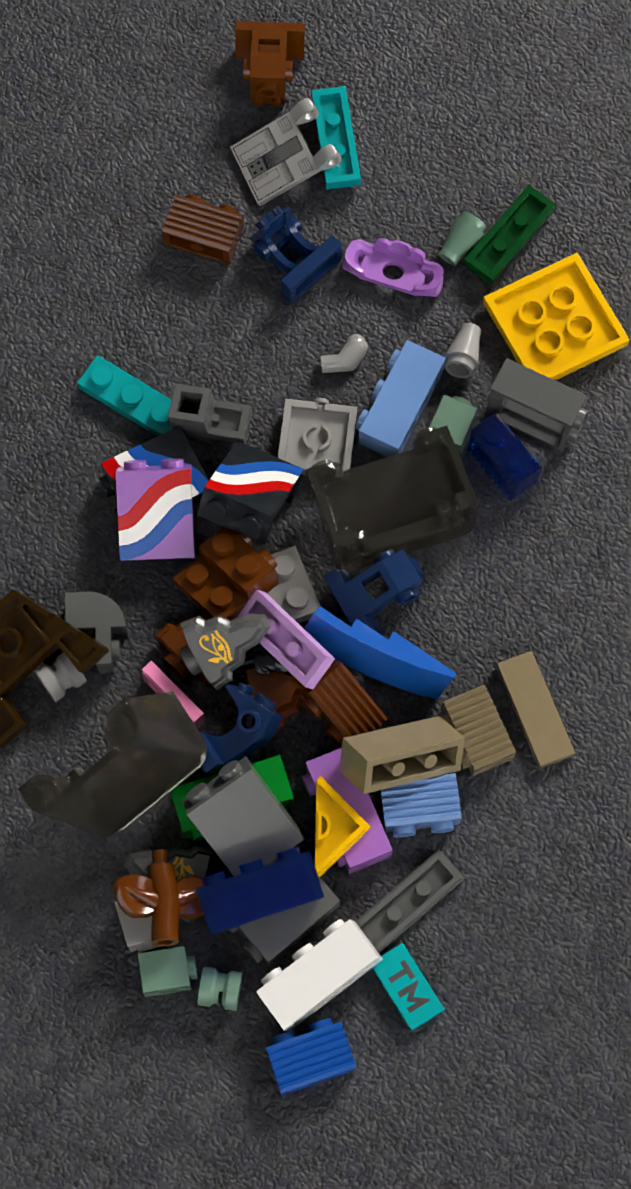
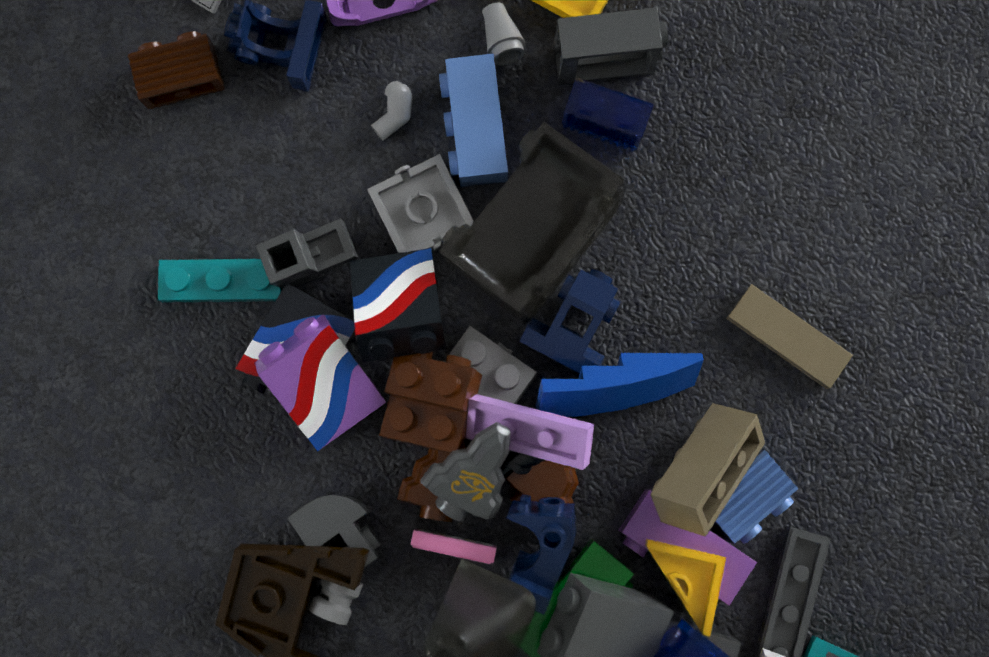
camera: 30 degrees left, 10 degrees up
(342, 704) = (624, 454): reddish brown brick -> none
(458, 416) = (538, 105): sand green brick -> none
(484, 733) = (755, 389): dark tan brick -> none

